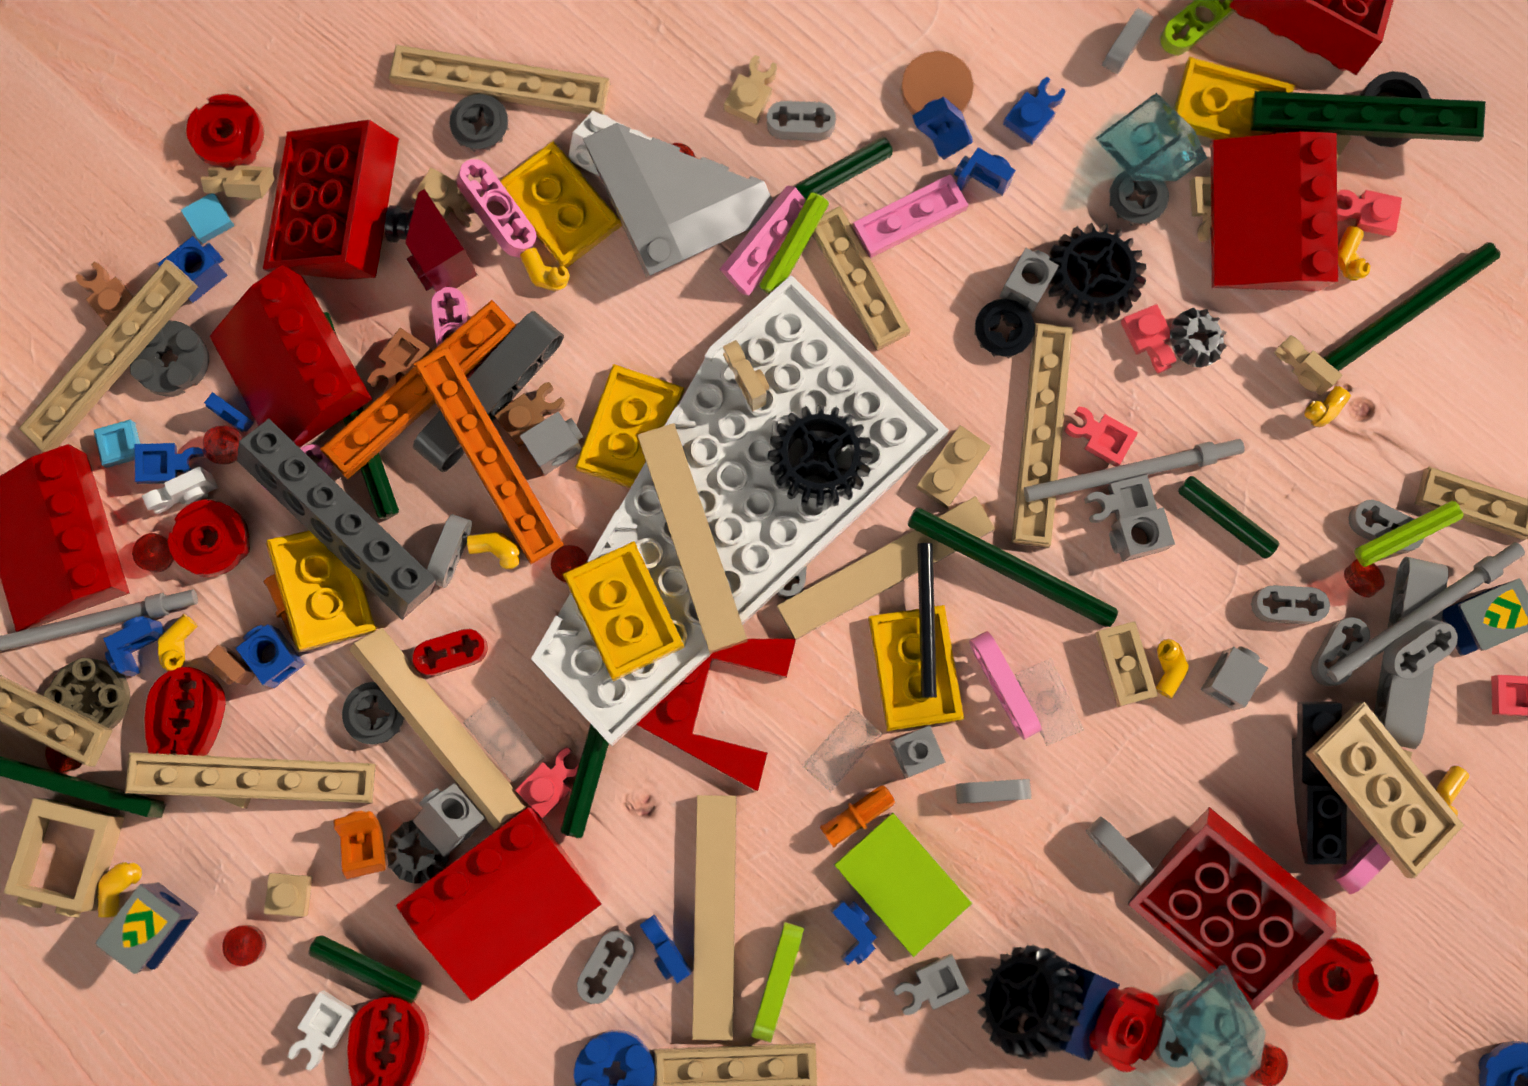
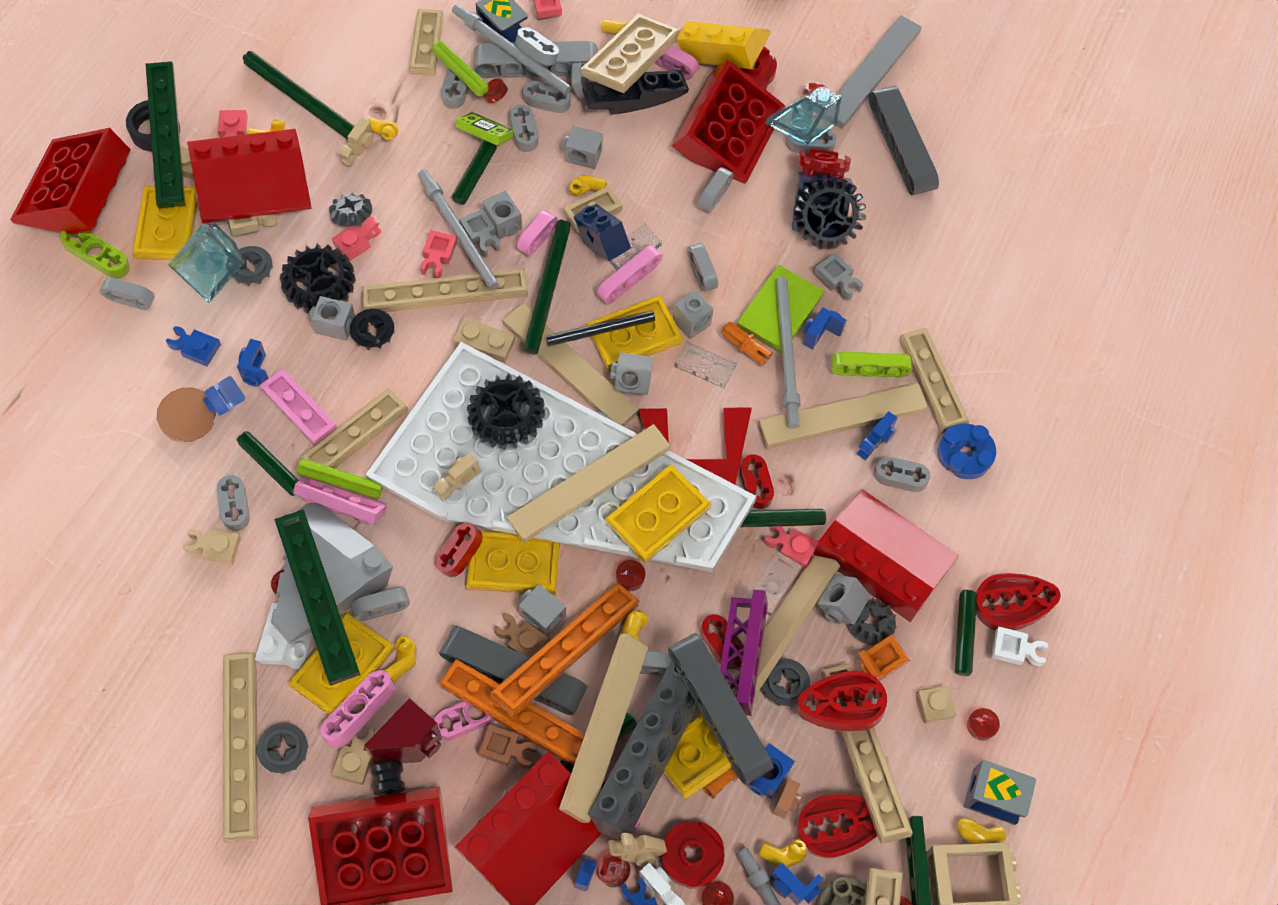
camera: 110 degrees left, 15 degrees down
(224, 477) = (638, 850): none -> tan plate
(291, 772) = (844, 685): none -> red piece
(339, 604) = (720, 708): none -> dark grey beam
(369, 467) = (603, 728): none -> tan tile
(409, 671) = (751, 652): none -> magenta fence
(615, 258) = (380, 604): none -> light grey beam
(628, 175) = (317, 597): none -> dark green tile
(650, 774) = (763, 480): none -> red beam
(664, 361) = (459, 549): none -> red beam
(751, 847) = (791, 398): none -> light grey bar
(845, 642) = (632, 383): none -> light grey brick
(1073, 659) = (602, 232): none -> dark blue brick
(1103, 575) = (537, 233): none -> bright pink beam
(1296, 546) = (484, 128): none -> lime tile
(1350, 696) = (577, 80): none -> light grey tile
(1384, 943) = (718, 42): none -> yellow slope

